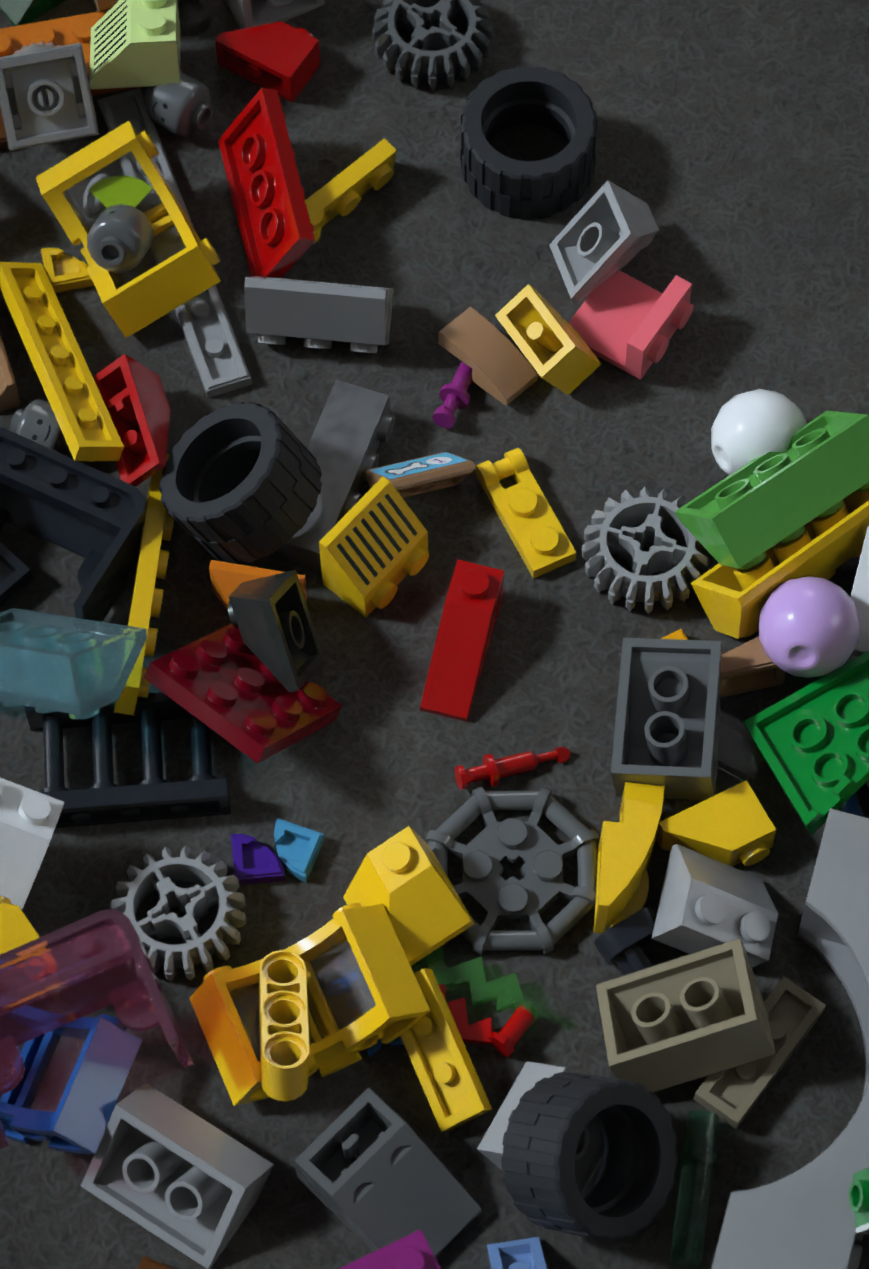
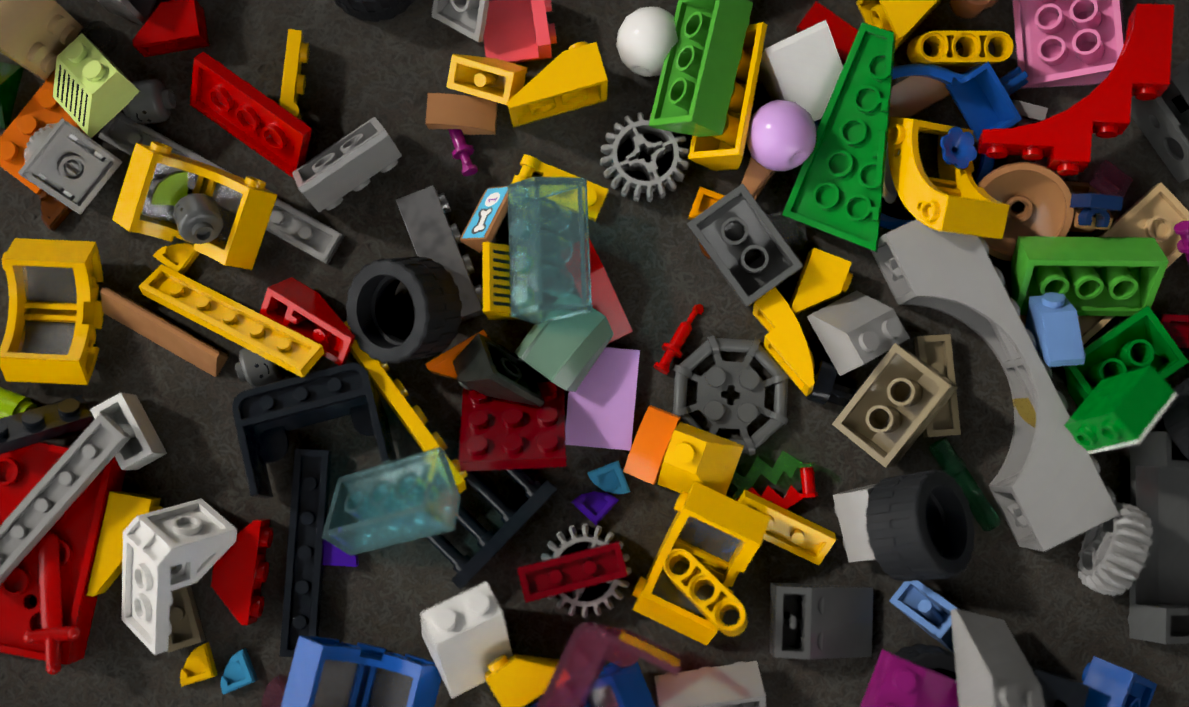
camera: 45 degrees left, 20 degrees up
(162, 884) = (572, 571): none -> dark red plate
(347, 850) = (651, 444): none -> orange slope
(367, 757) = (604, 403): none -> lavender tile
(380, 663) = (566, 347): none -> sand green slope
(446, 541) = (549, 248): none -> clear light blue slope
(616, 404) = (566, 84): none -> yellow slope

